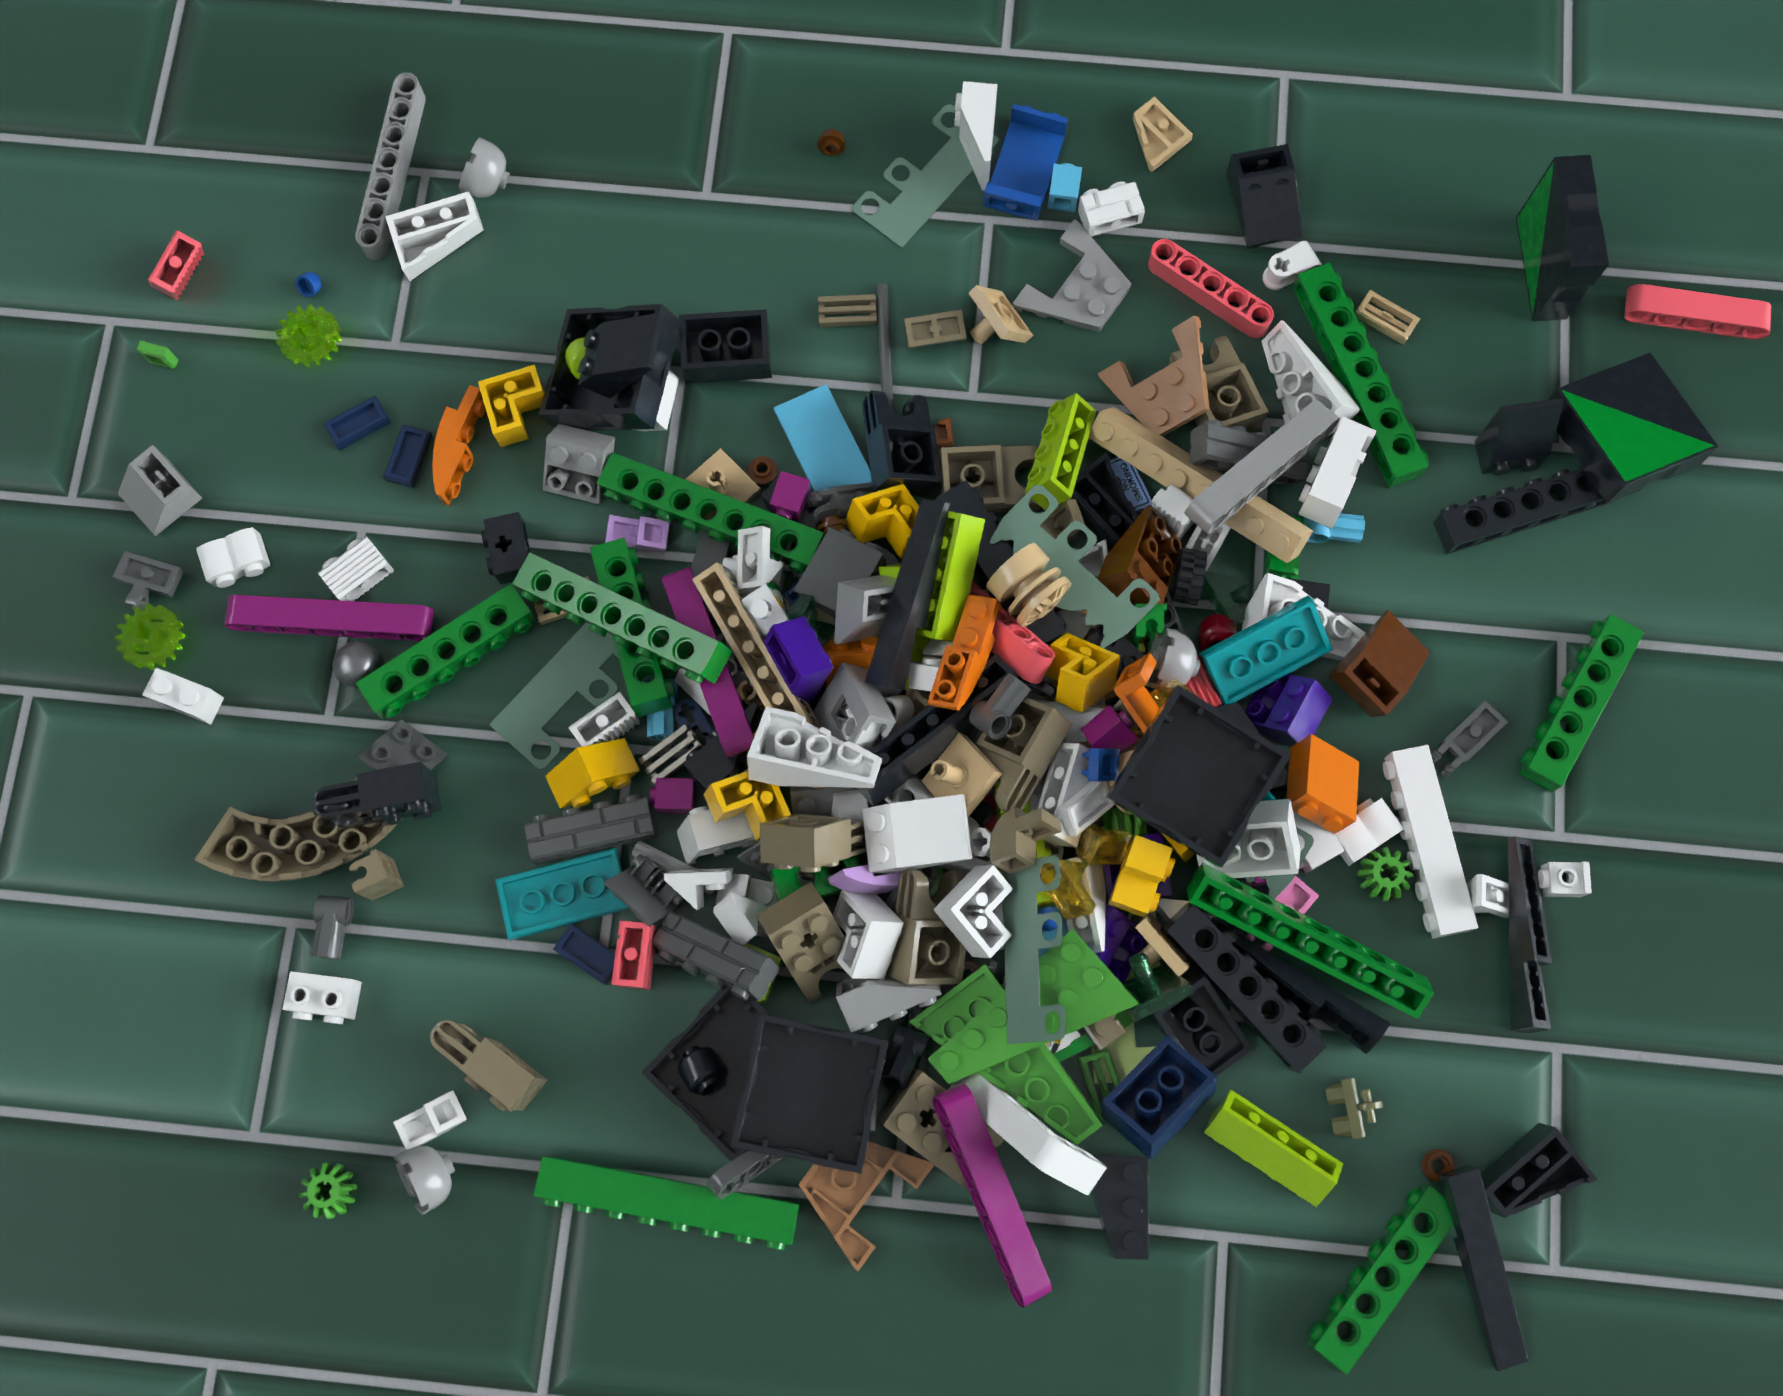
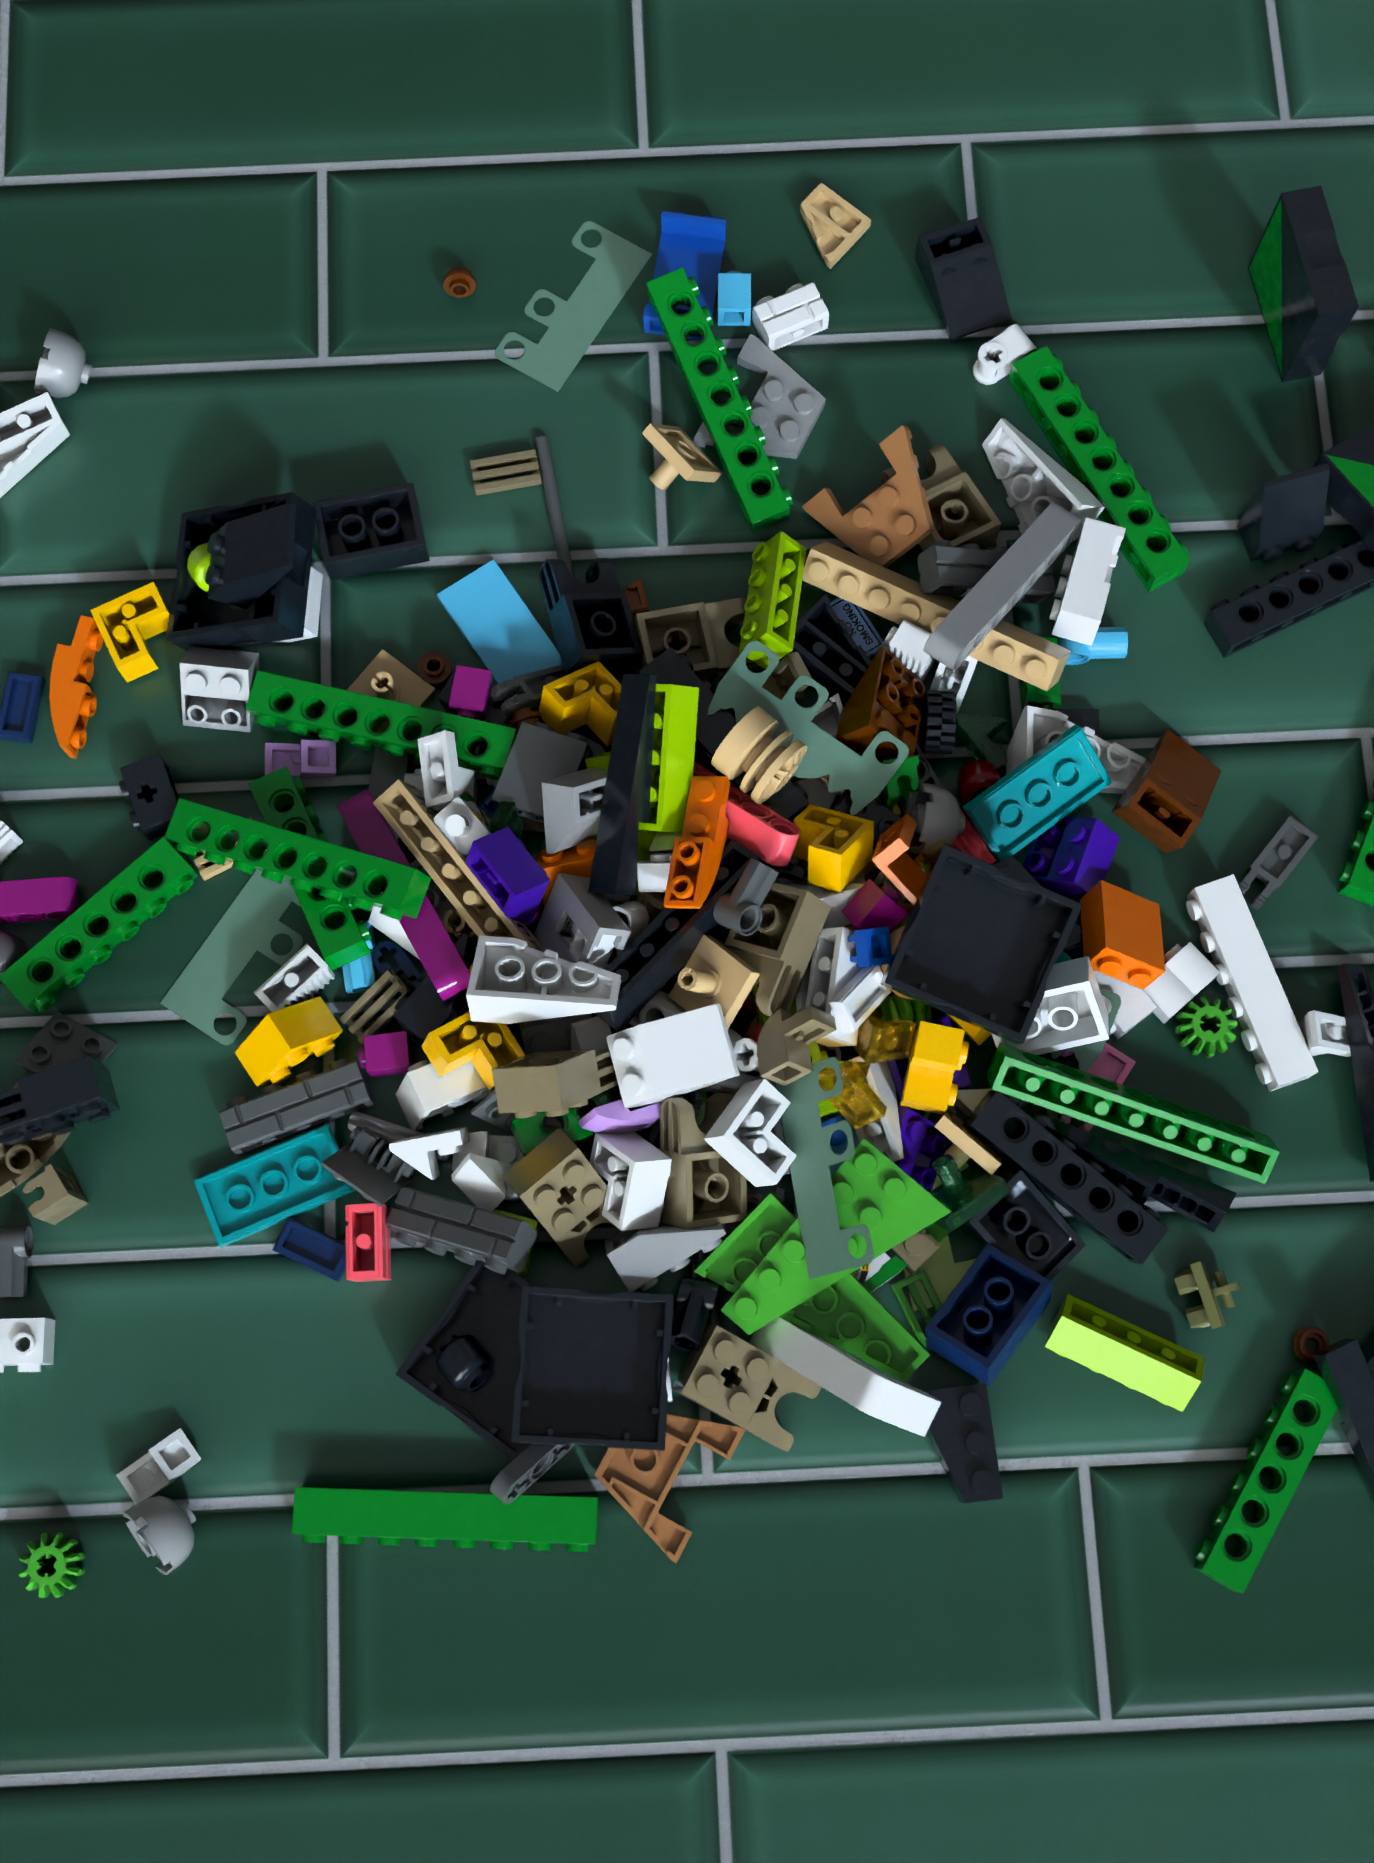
camera: 10 degrees left, 0 degrees up
(488, 1065) = (217, 1392): dark tan brick -> none
(934, 329) = (609, 480): dark tan hinge -> none
(976, 120) = (621, 233): white slope -> none
(992, 1194) = (816, 1452): magenta beam -> none
(1017, 173) = (678, 289): none -> green brick
(1214, 301) = (921, 406): coral beam -> none
(1383, 320) = (1116, 403): tan tile -> none

